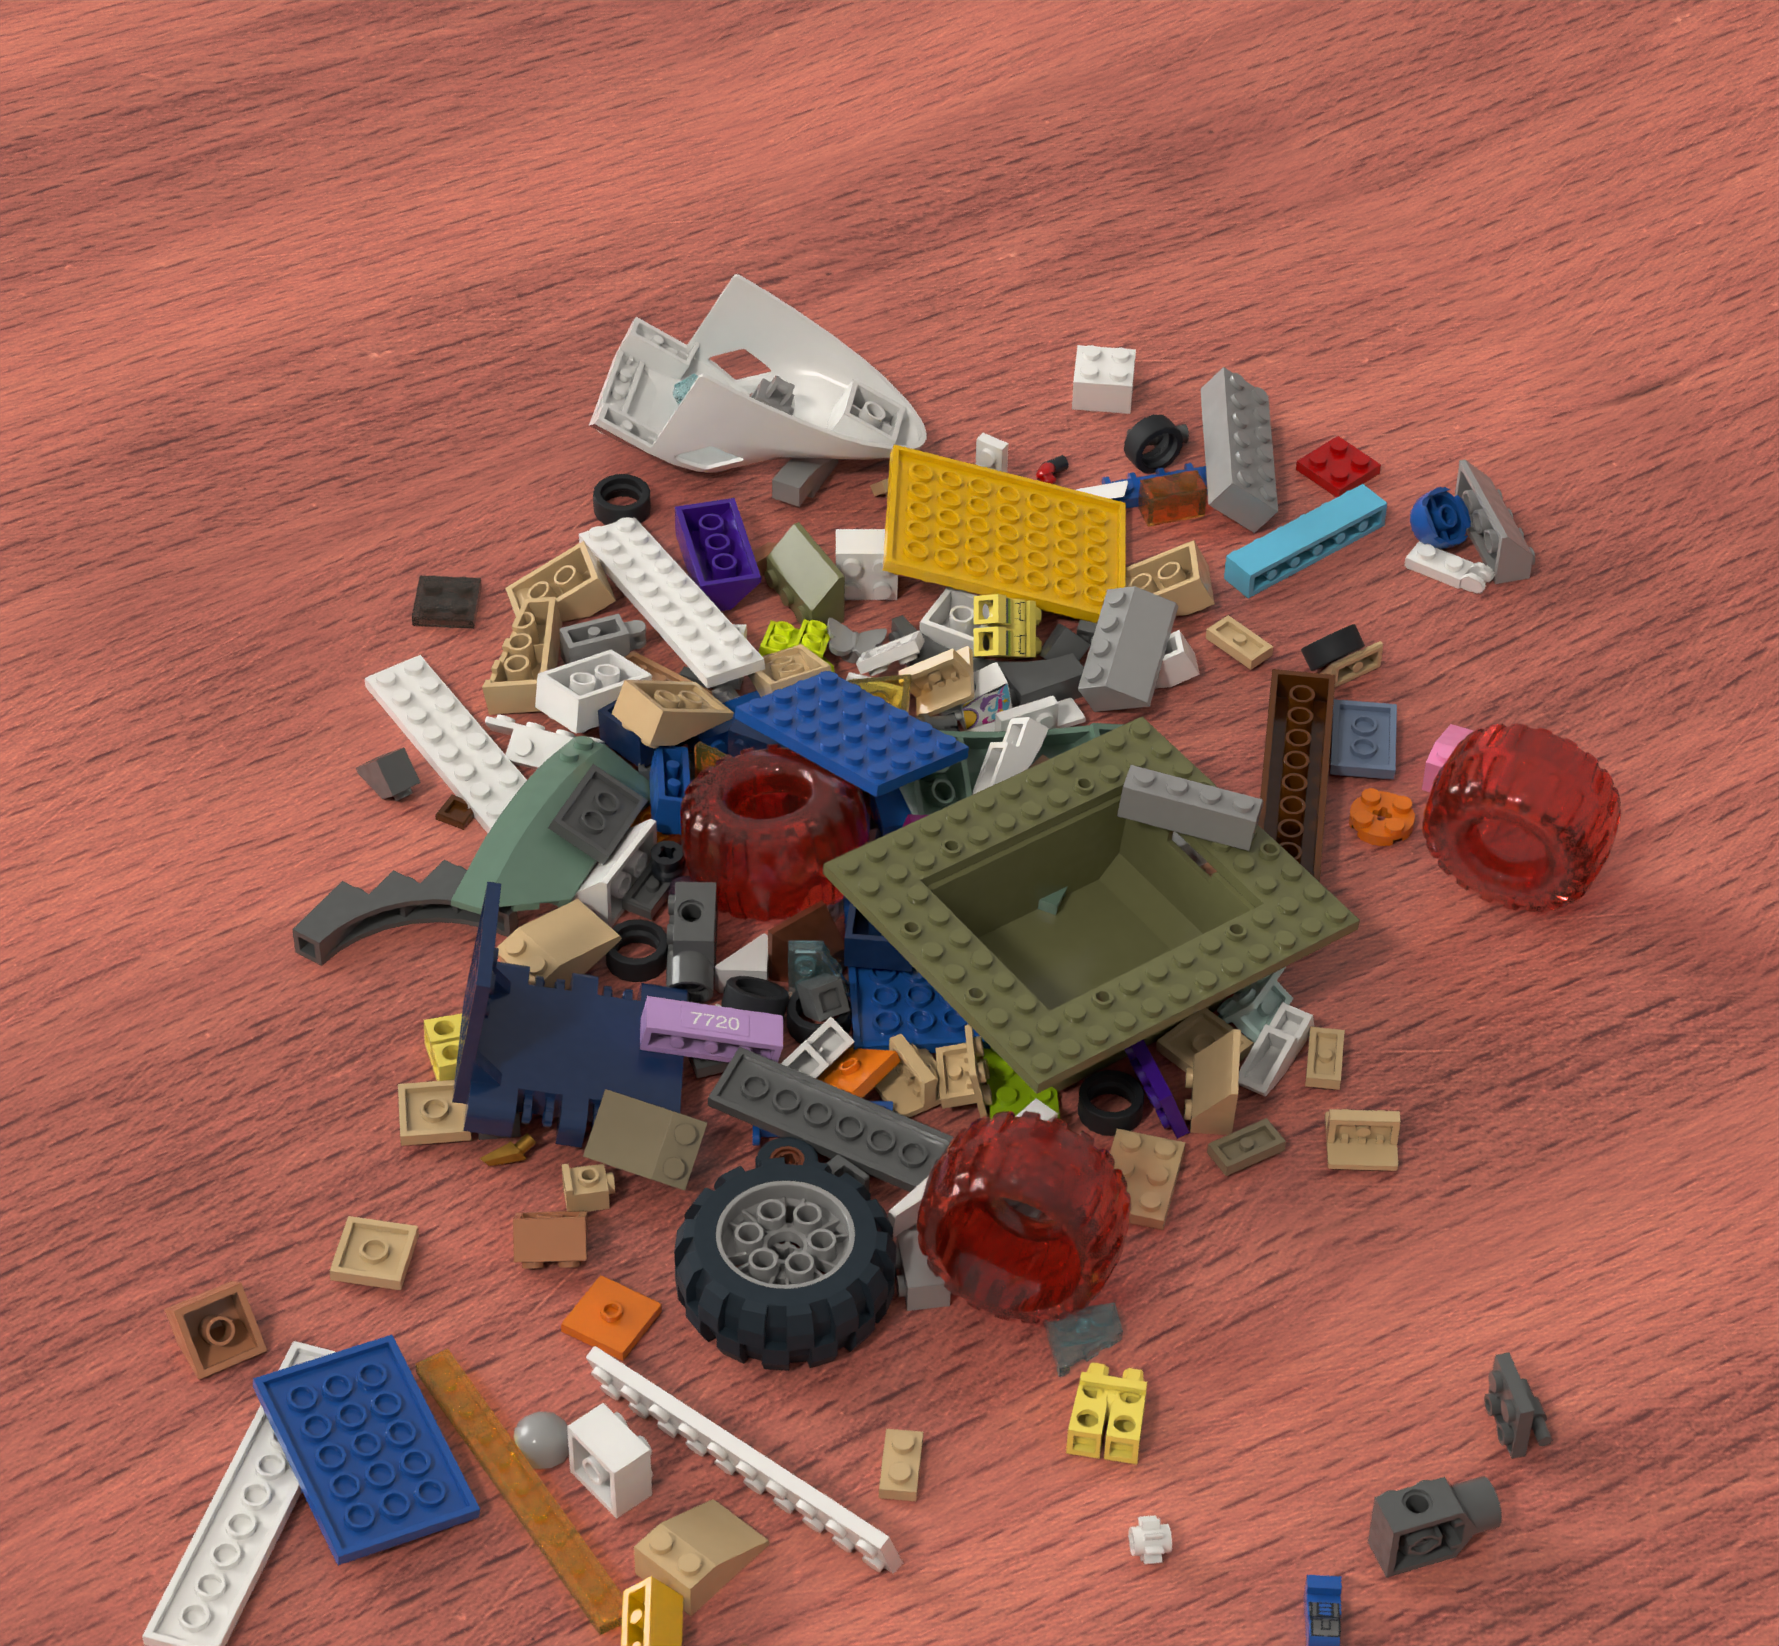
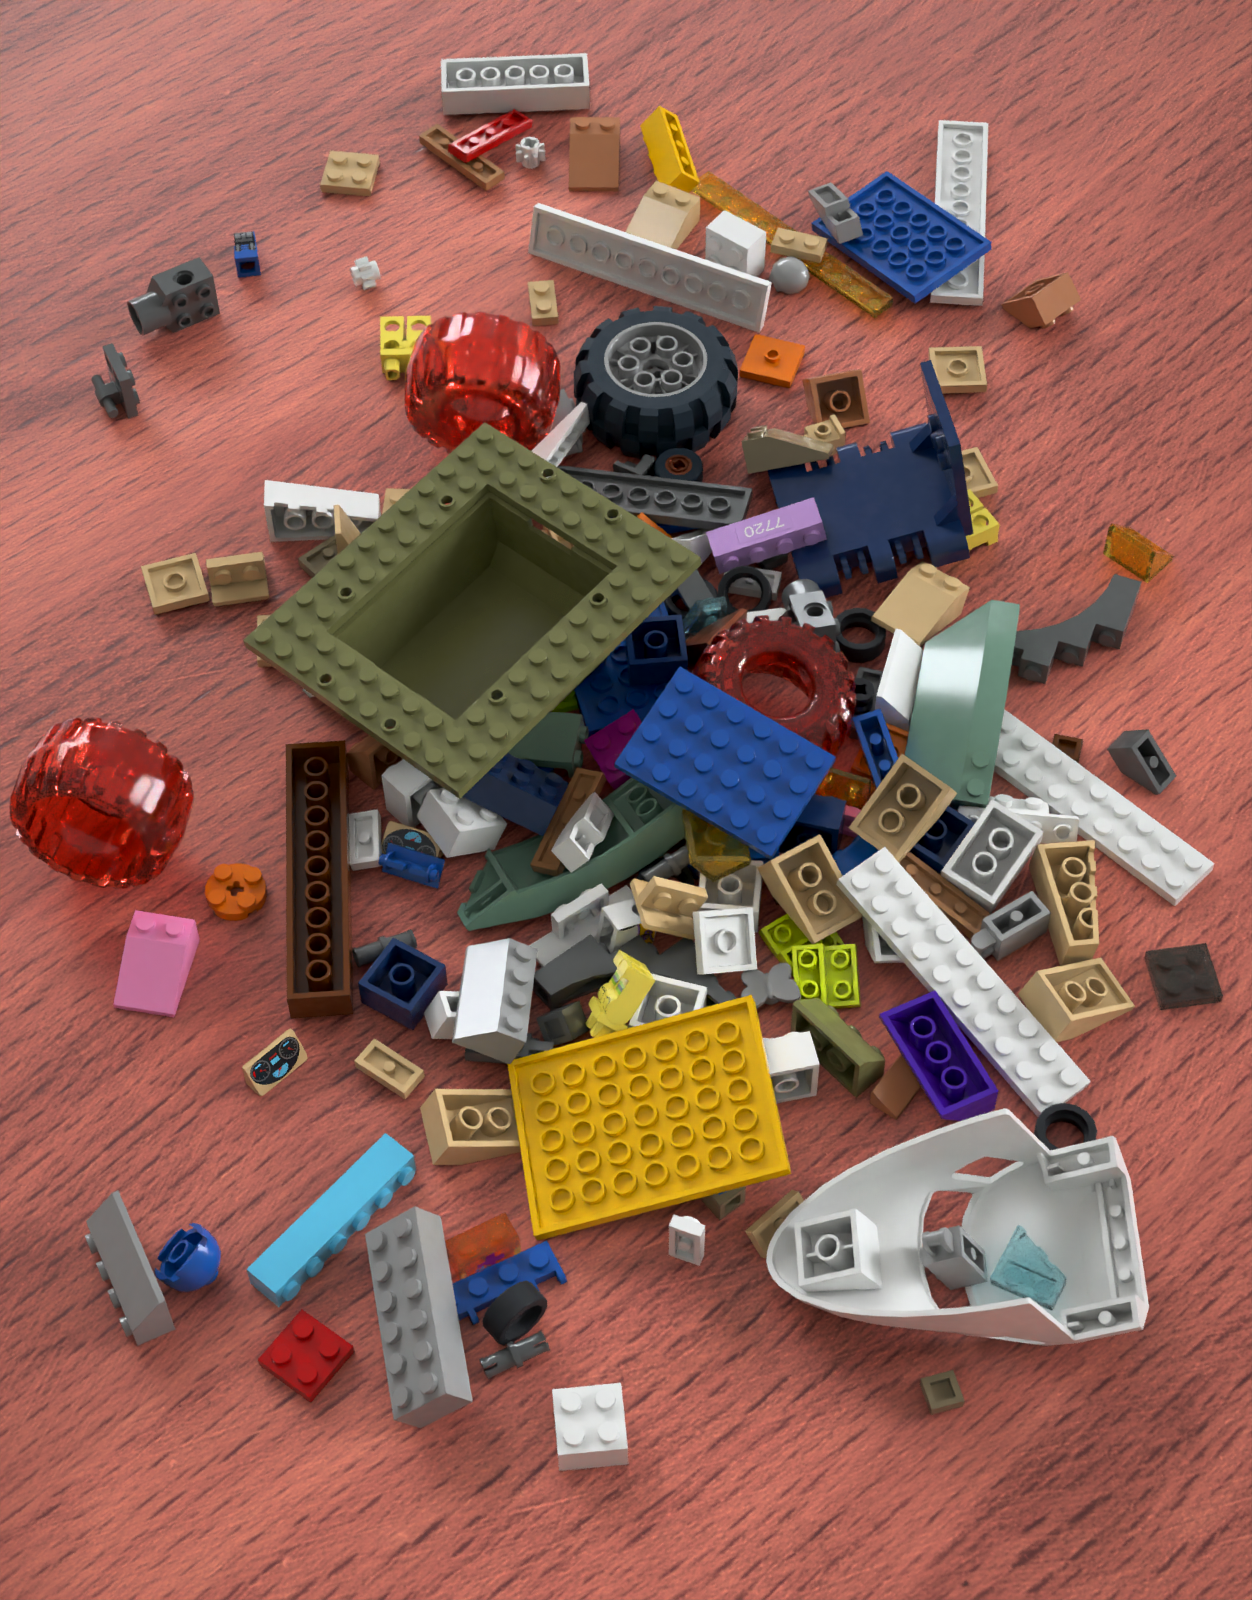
camera: 170 degrees right, 10 degrees up
(268, 985) = (1135, 552): none -> clear yellow slope
(445, 1490) = (836, 212): none -> light grey slope
(515, 1460) = (799, 245): none -> tan plate
(597, 814) = (929, 697): dark grey plate -> none
(1047, 469) = (629, 1279): arm -> none
(1109, 491) = (564, 1248): white sticker -> none
(1190, 807) = (397, 683): light grey slope -> none
(1217, 691) = (402, 983): none -> dark blue brick
(1231, 738) = (370, 952): none -> dark grey pin
(1251, 1186) = (307, 511): none -> white wedge
(1332, 647) = (312, 1063): black tyre -> none
(1363, 739) = (256, 971): sand blue plate -> none
(1440, 1144) = (175, 583): none -> tan plate
(1449, 568) = (174, 1217): white hinge -> none

